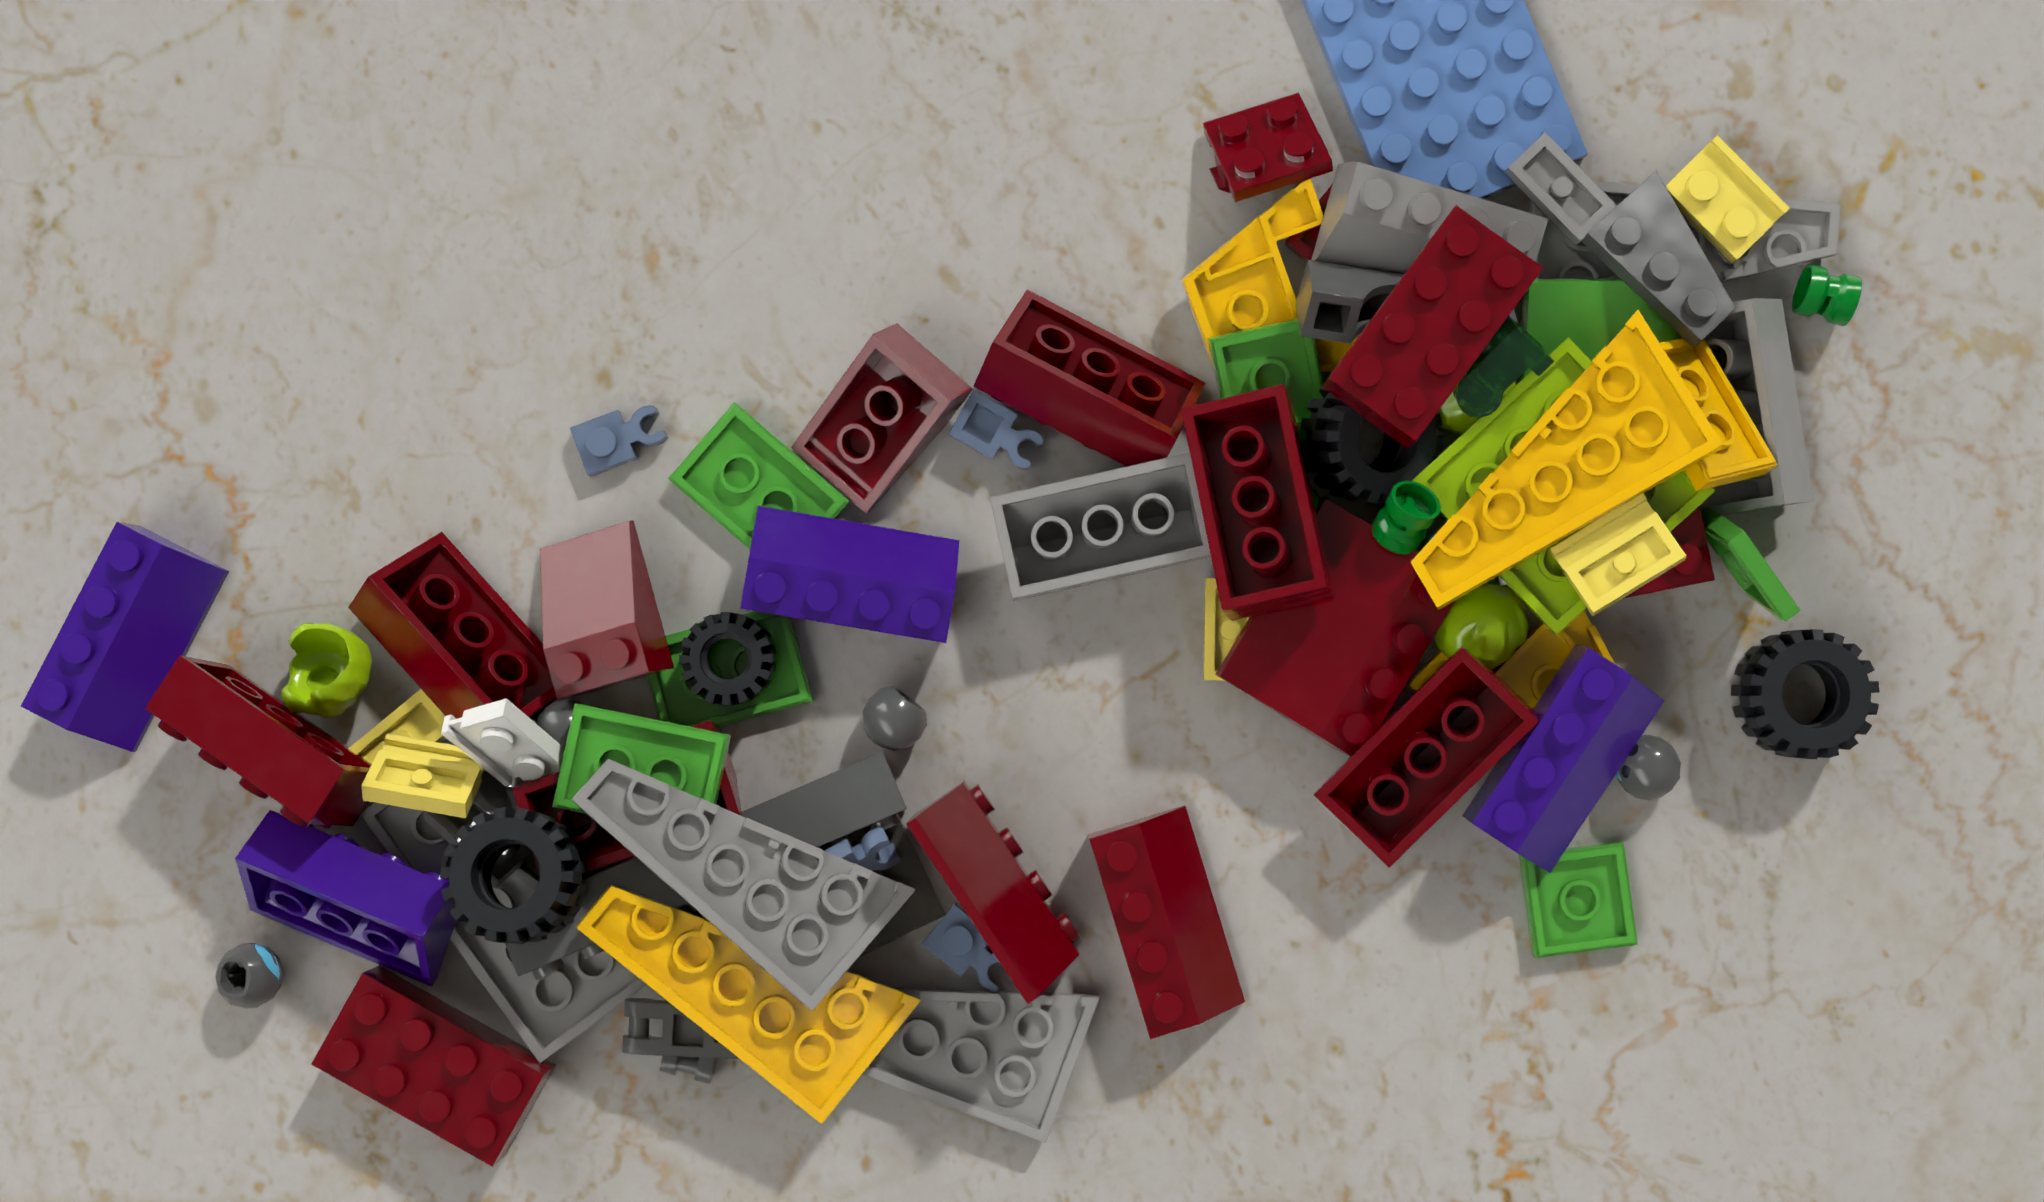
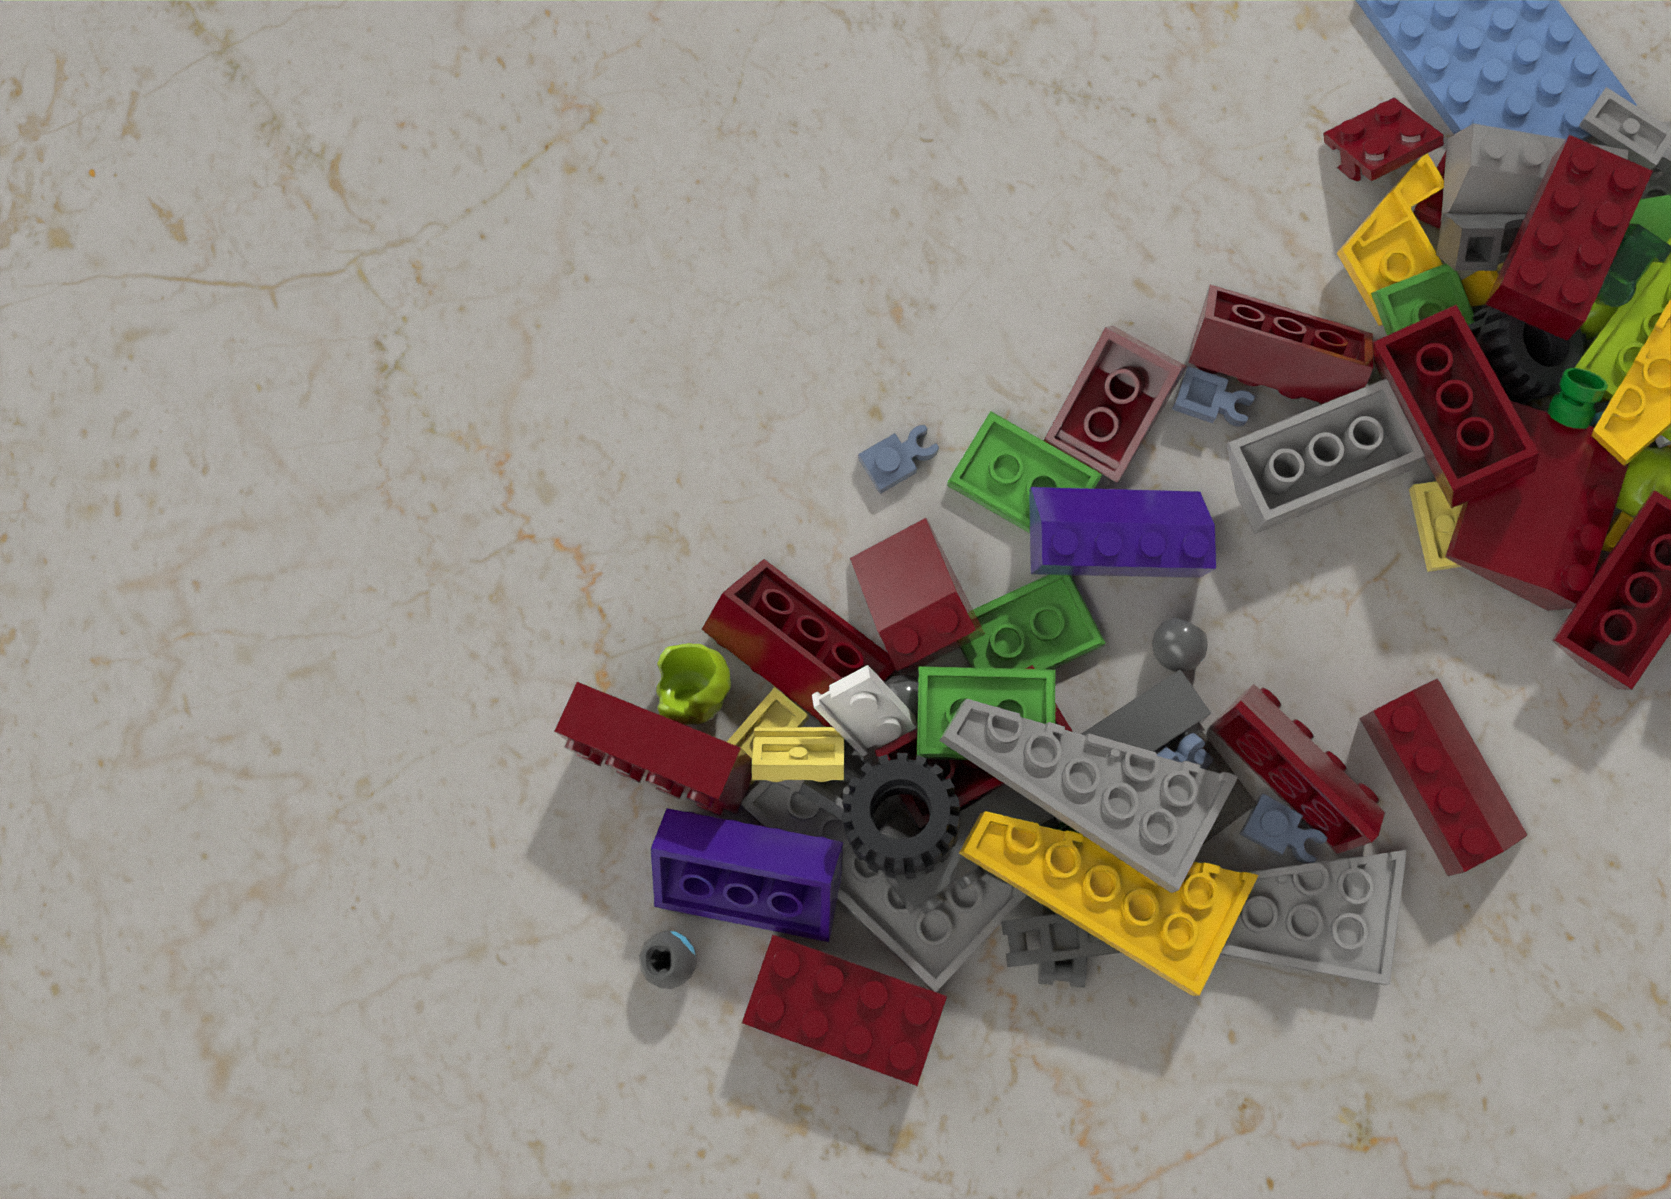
camera: 15 degrees left, 10 degrees down
(124, 636) = (513, 688): dark purple slope -> none
(696, 658) = (1032, 590): black tyre -> none

